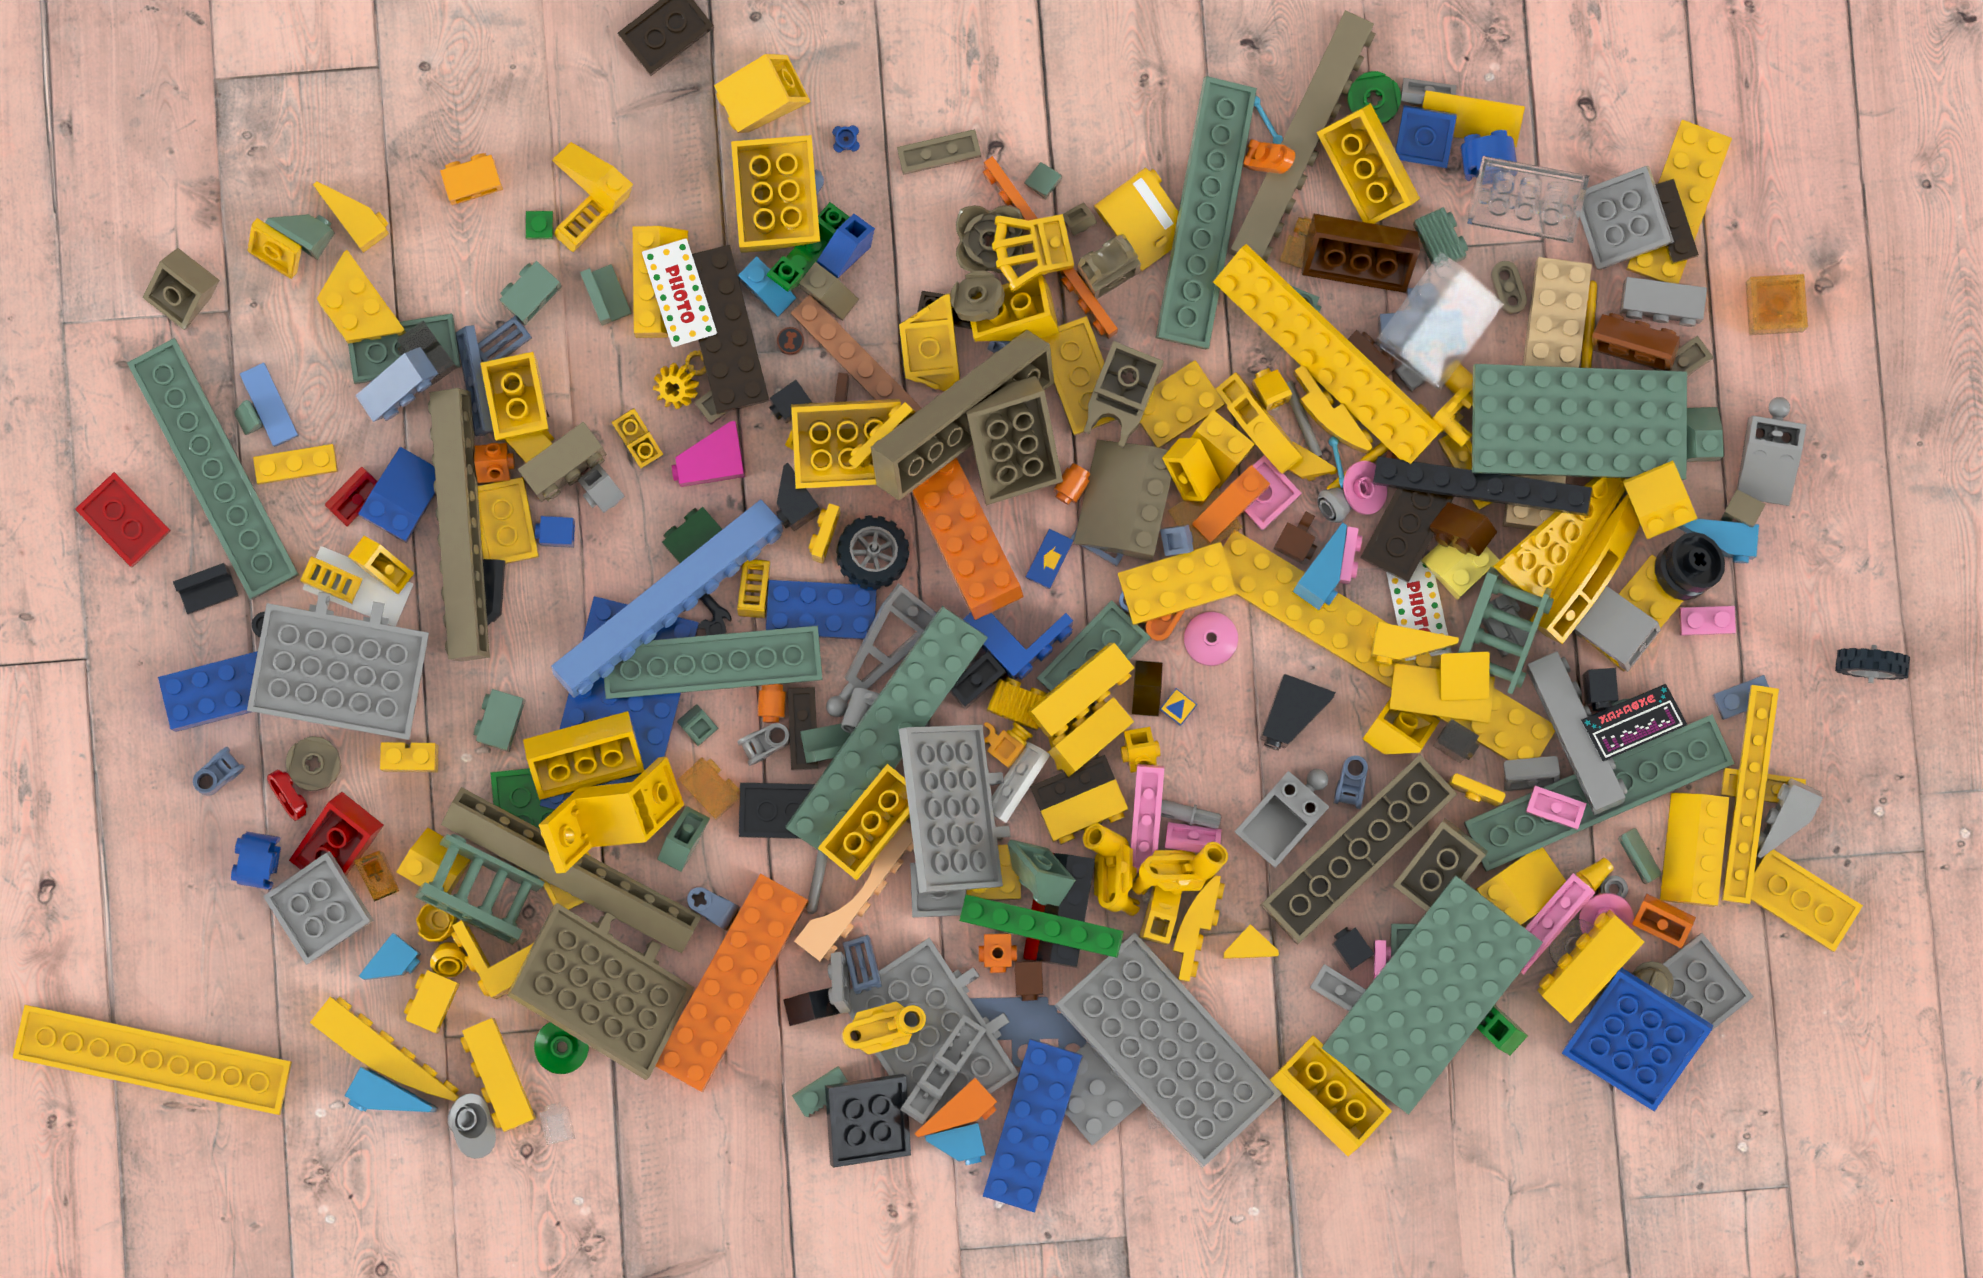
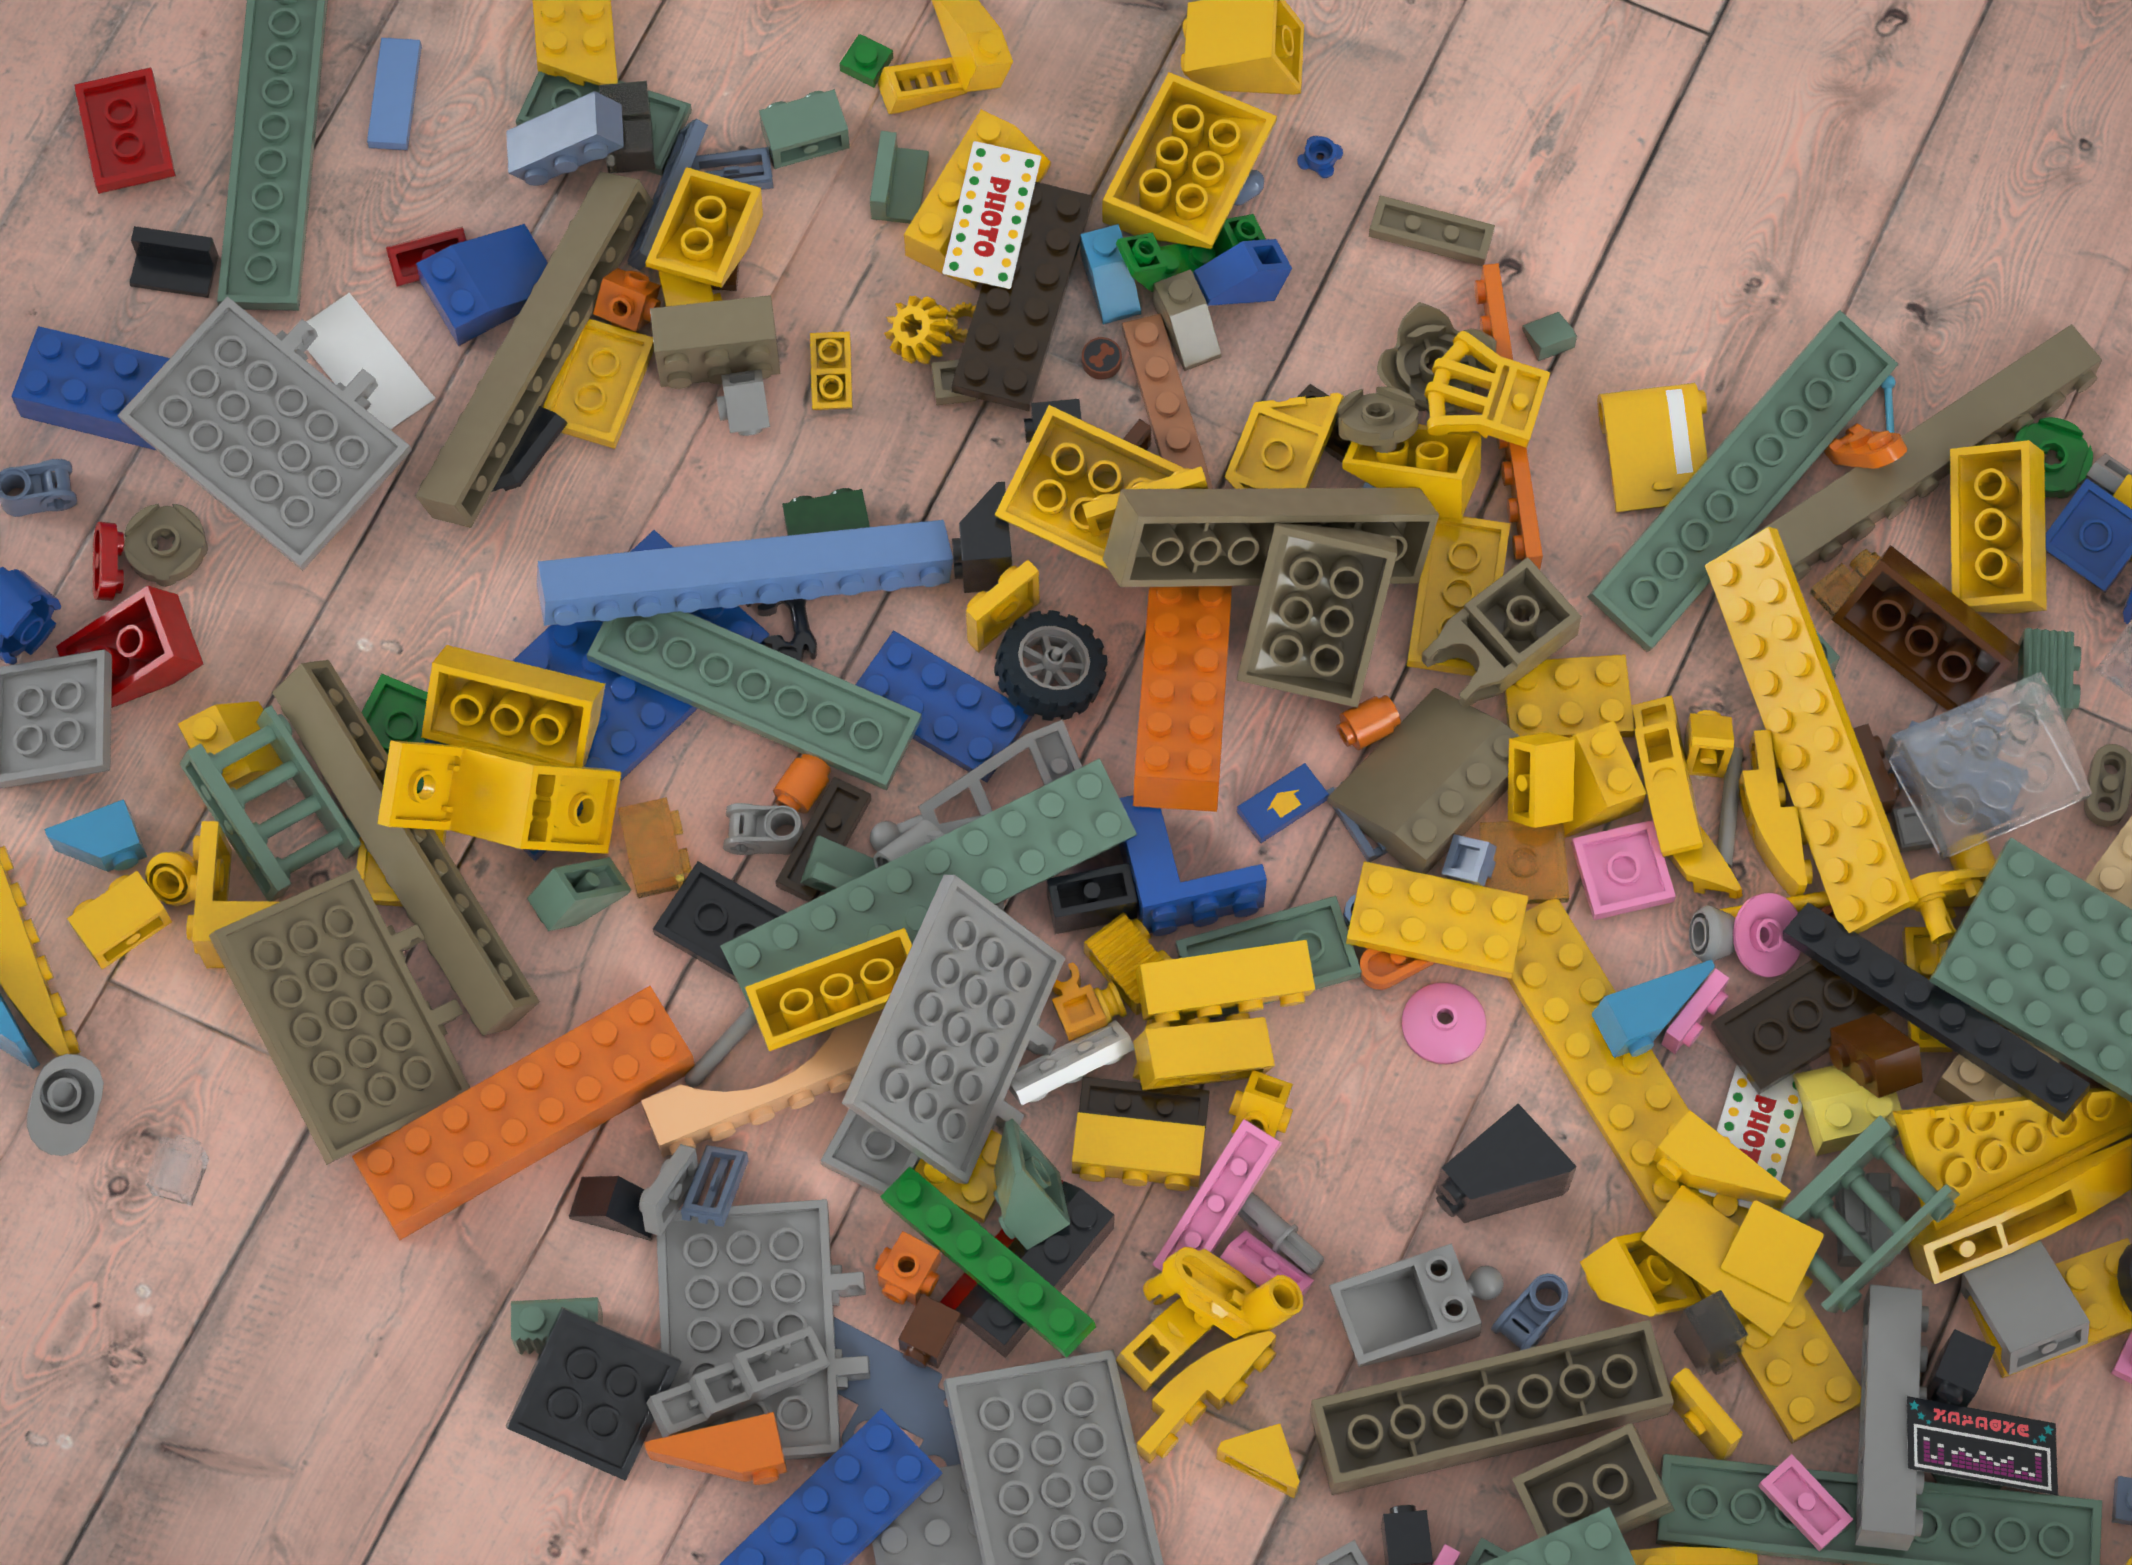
camera: 30 degrees right, 15 degrees down
(248, 417) = (359, 93): sand green slope -> none
(295, 464) = (381, 179): yellow plate -> none
(309, 571) = (323, 311): yellow slope -> none
(377, 875) = (154, 719): clear yellow slope -> none
(381, 564) = (408, 348): yellow slope -> none
(401, 758) = (289, 600): yellow piece -> none
(435, 924) = (183, 820): yellow hair -> none
(498, 1074) = (142, 1061): yellow brick -> none
(499, 720) = (435, 616): sand green brick -> none
(548, 1054) = (229, 1064): green dish -> none
(555, 531) = (655, 426): blue brick -> none
(697, 724) = (688, 764): sand green slope -> none
(711, 459) = (910, 442): dark pink slope -> none
(716, 910) = (564, 1004): sand blue piece -> none
(749, 610) = (853, 653): yellow slope -> none
(882, 1028) = (689, 1279): yellow piece -> none
(960, 1143) = (703, 1501): dark azure slope -> none
(1079, 219) = (1568, 402): dark tan plate -> none
(1109, 266) = (1575, 469): dark tan brick -> none
(1112, 869) = (1132, 1244): yellow piece -> none
(1147, 688) = (1317, 1039): dark brown slope -> none
(1178, 707) = (1347, 1086): tile -> none
(1231, 504) = (1572, 853): orange slope -> none
(1296, 541) = (1634, 955): reddish brown brick -> none
(1333, 441) = (1756, 858): medium azure hinge -> none
(1530, 772) = (1782, 1433): light grey slope -> none

